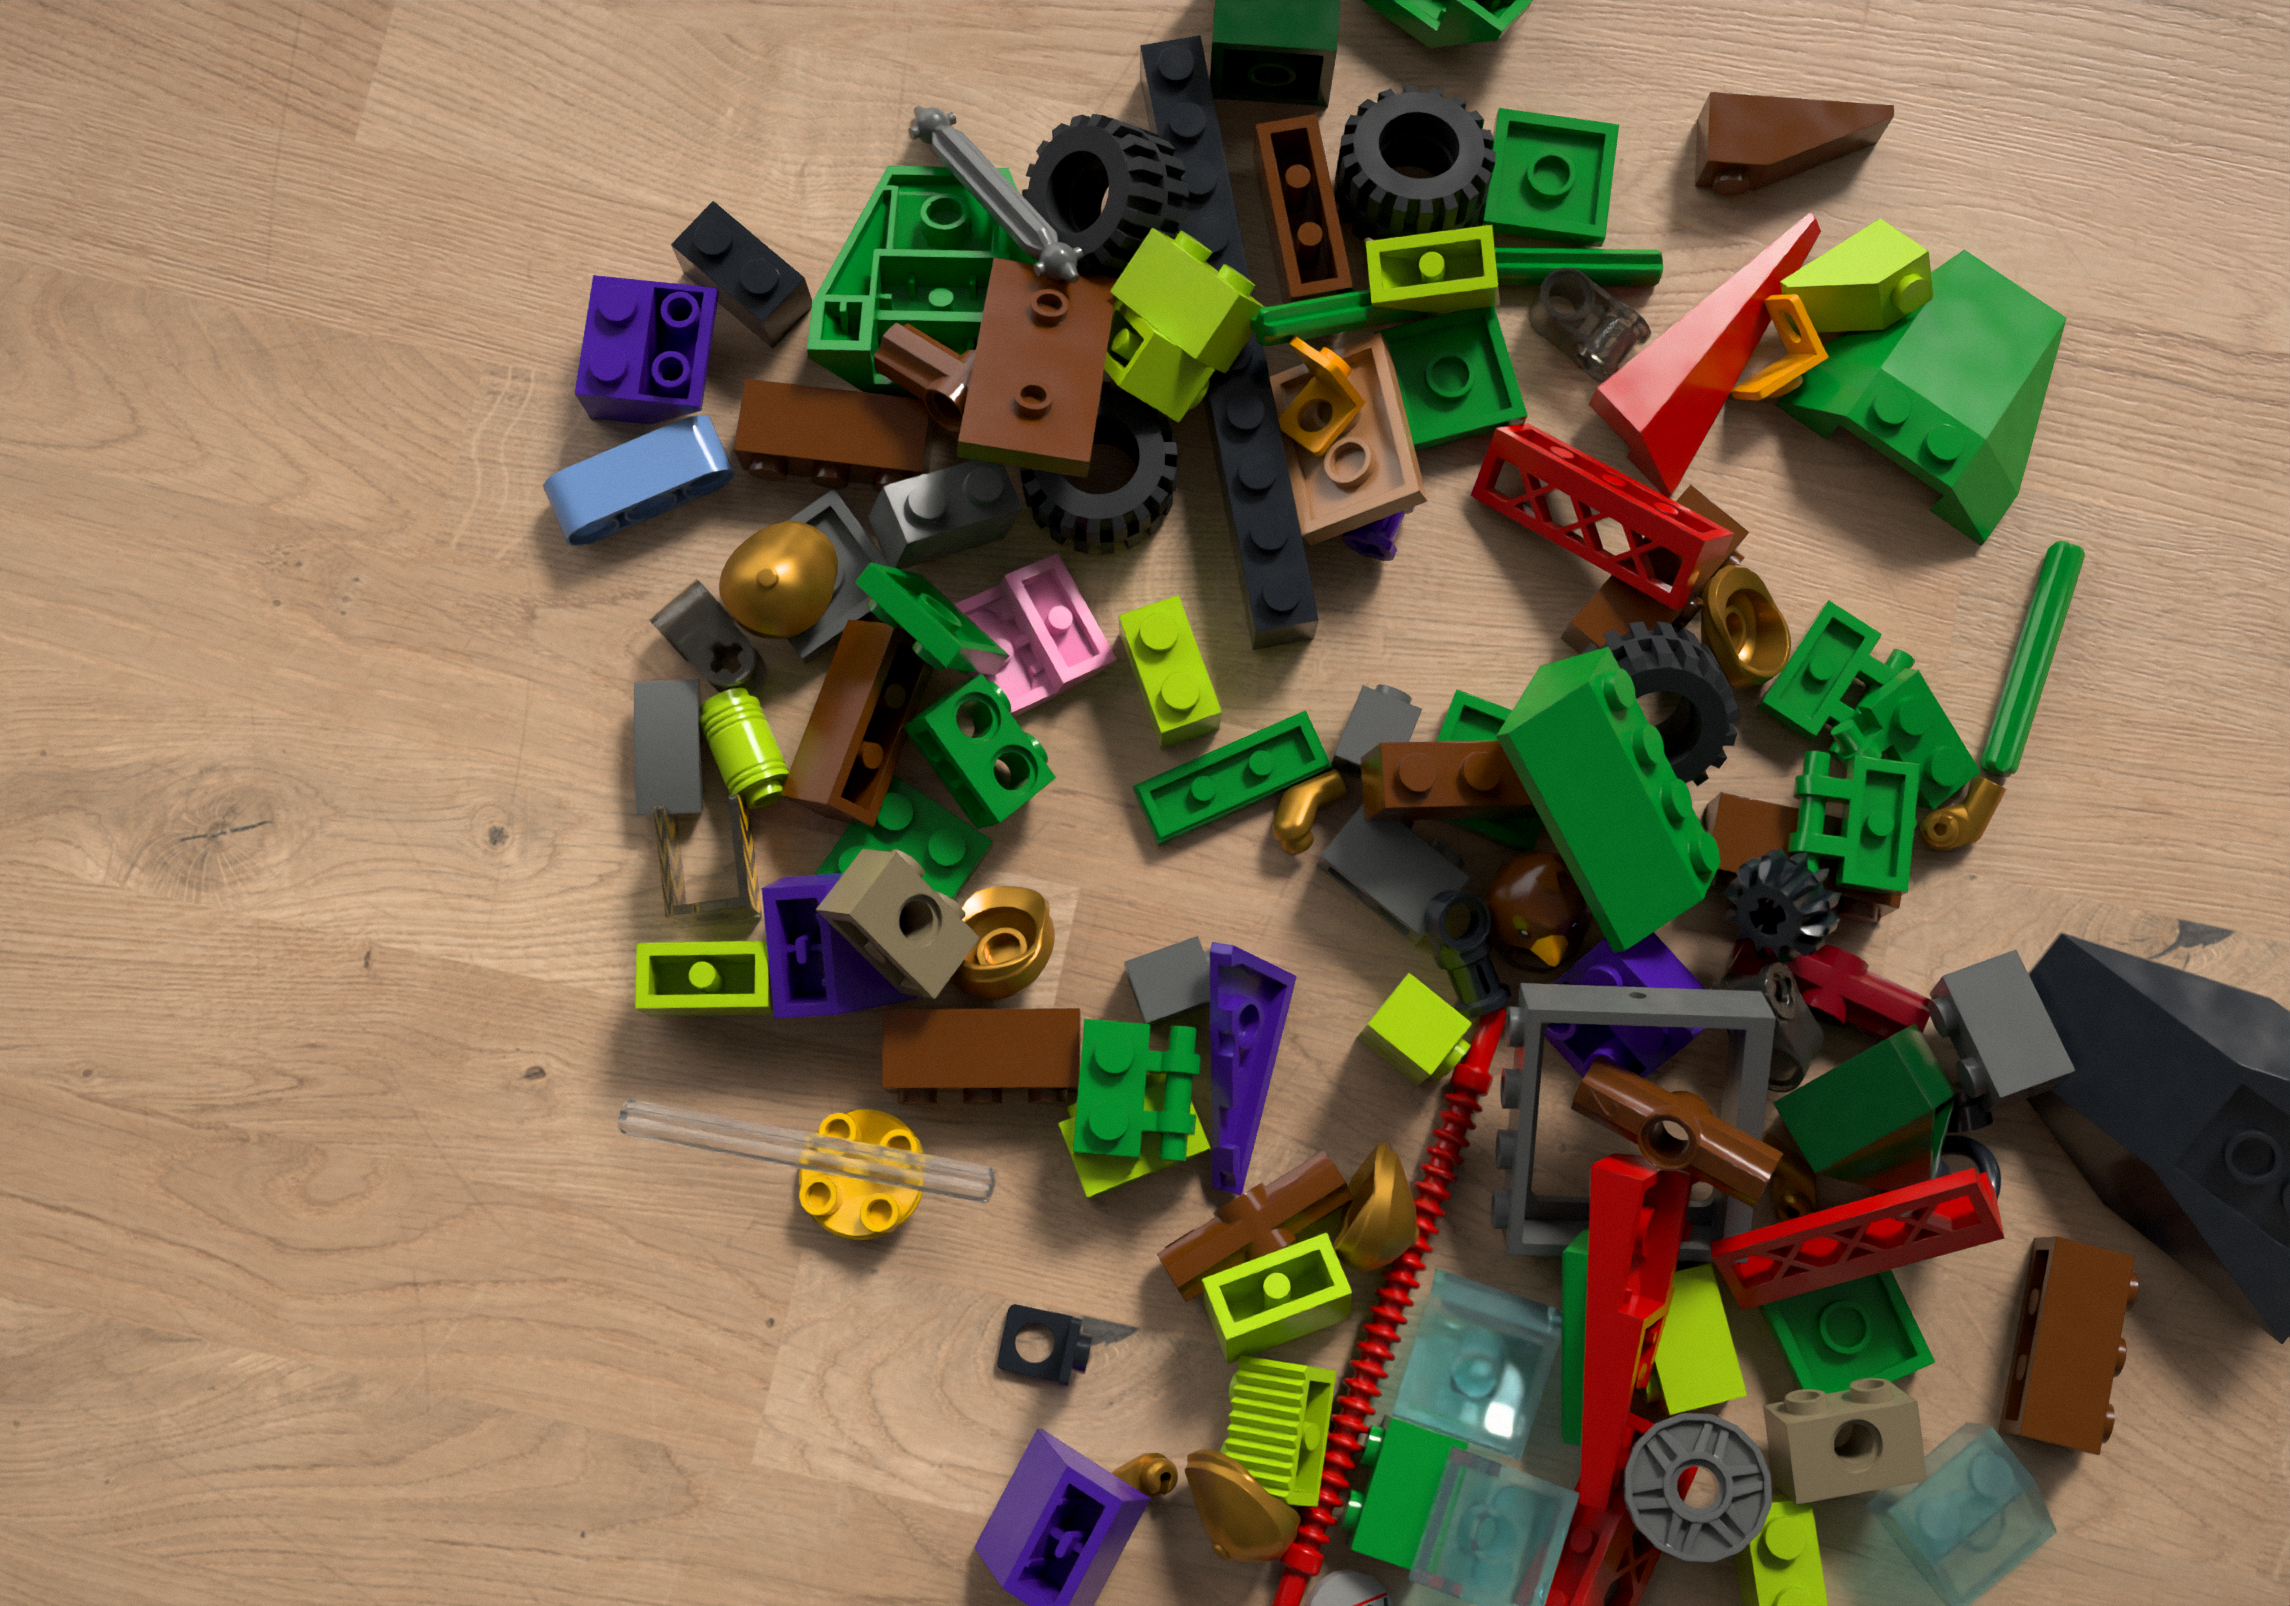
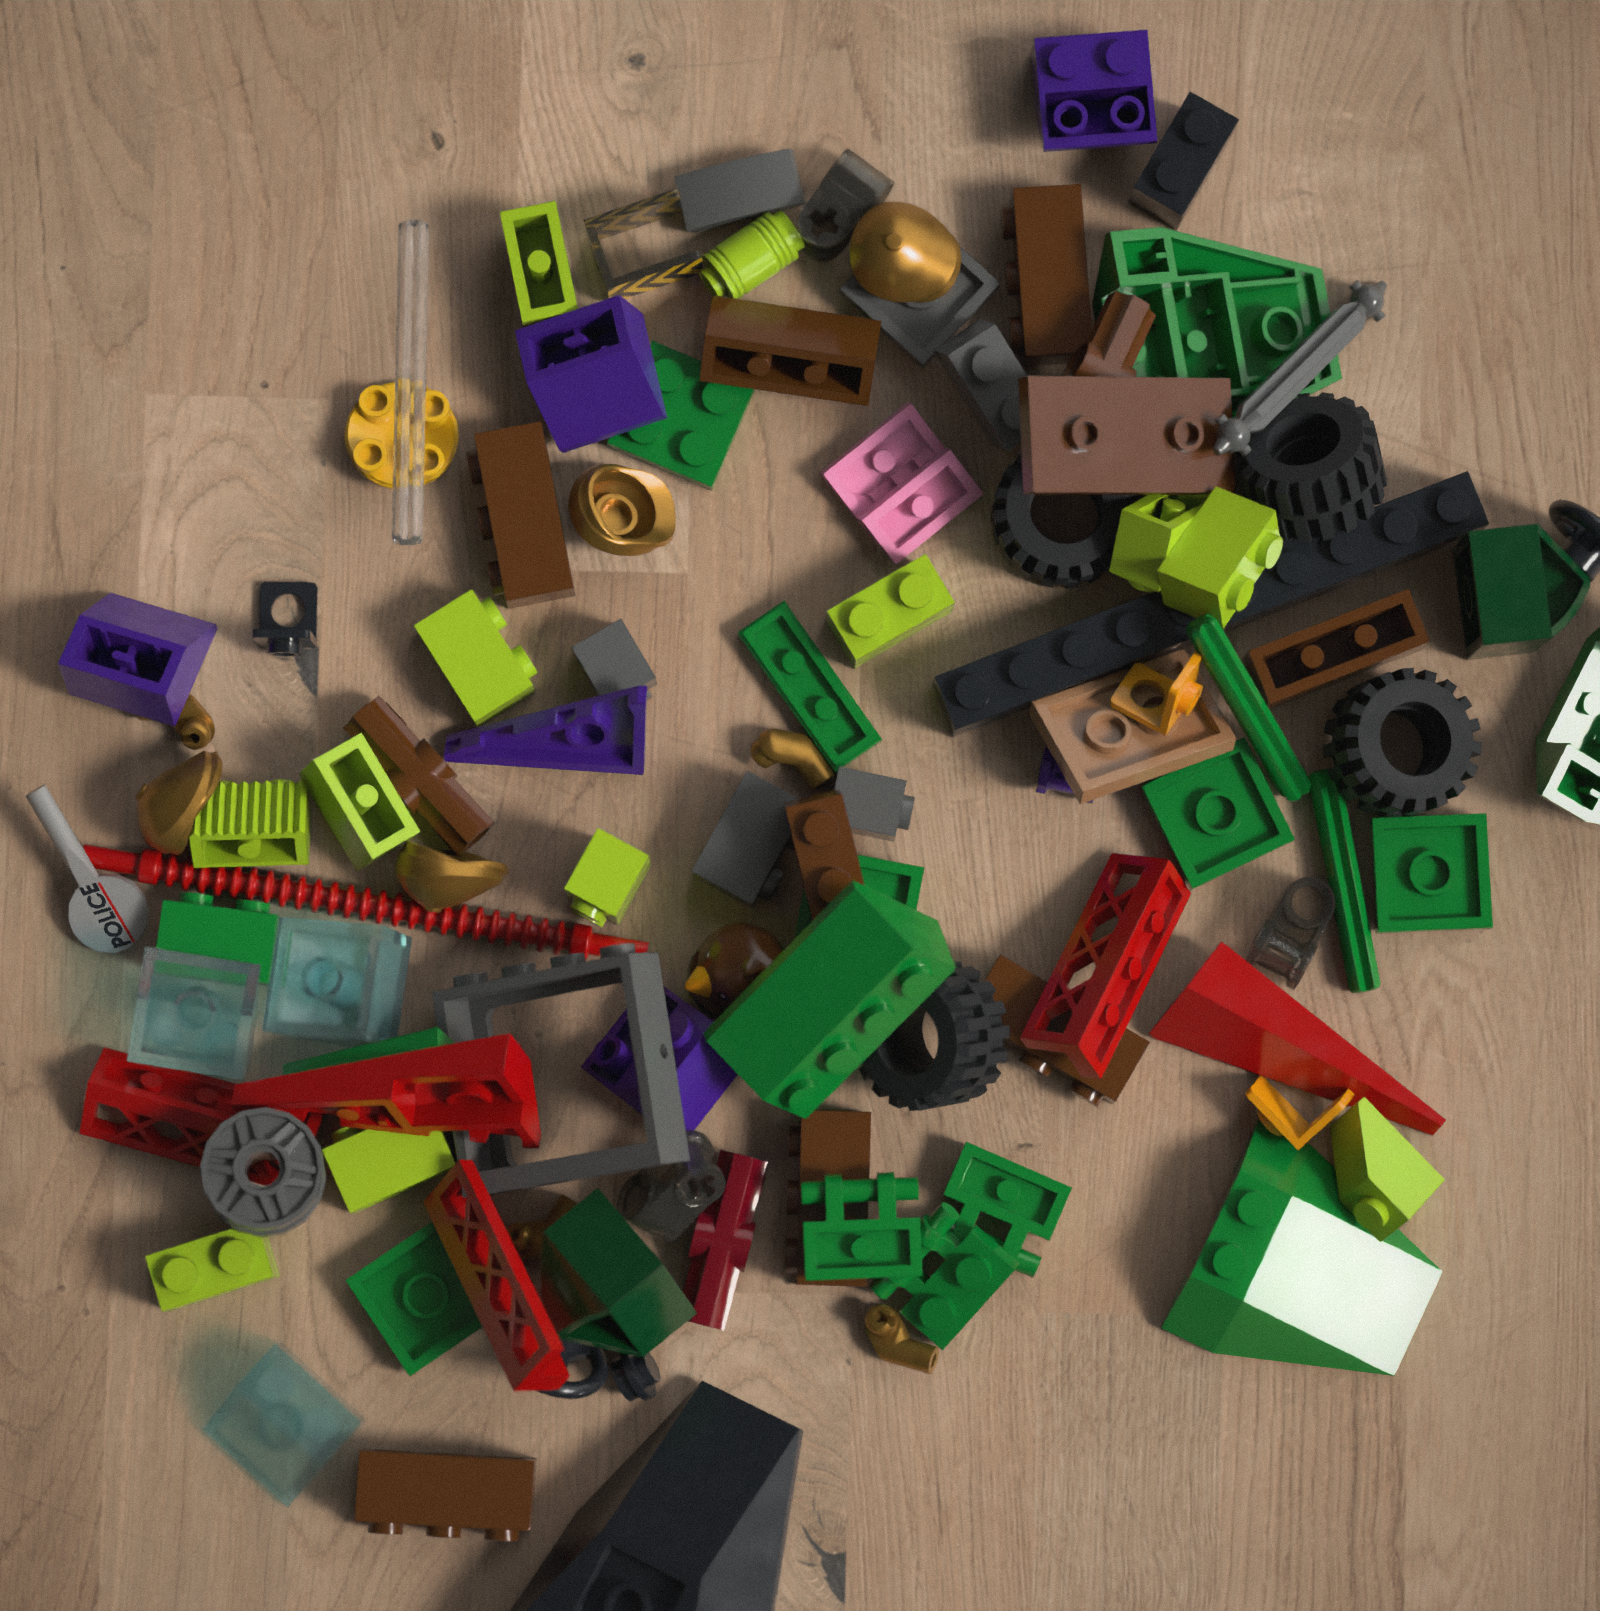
camera: 75 degrees right, 5 degrees up
(638, 480) = (975, 111): medium blue beam -> none
(867, 913) = (616, 387): dark tan brick -> none
(941, 629) = (885, 391): green plate -> none
(968, 762) = (771, 451): green brick -> none
(1113, 1090) = (507, 629): green plate -> none
(1434, 271) = (1300, 775): lime slope -> none
(1467, 956) = (682, 910): black connector -> none
(1714, 1148) = (555, 1104): reddish brown piece -> none
(1744, 627) = (1027, 1111): pearl gold hat -> none
(1765, 139) = (1507, 1068): reddish brown slope -> none
(1782, 905) = (772, 1172): black gear -> none
(1879, 1455) = (318, 1332): dark tan brick -> none
(1999, 1032) = (700, 1381): dark grey brick -> none
(2032, 659) = (1058, 1385): green axle -> none

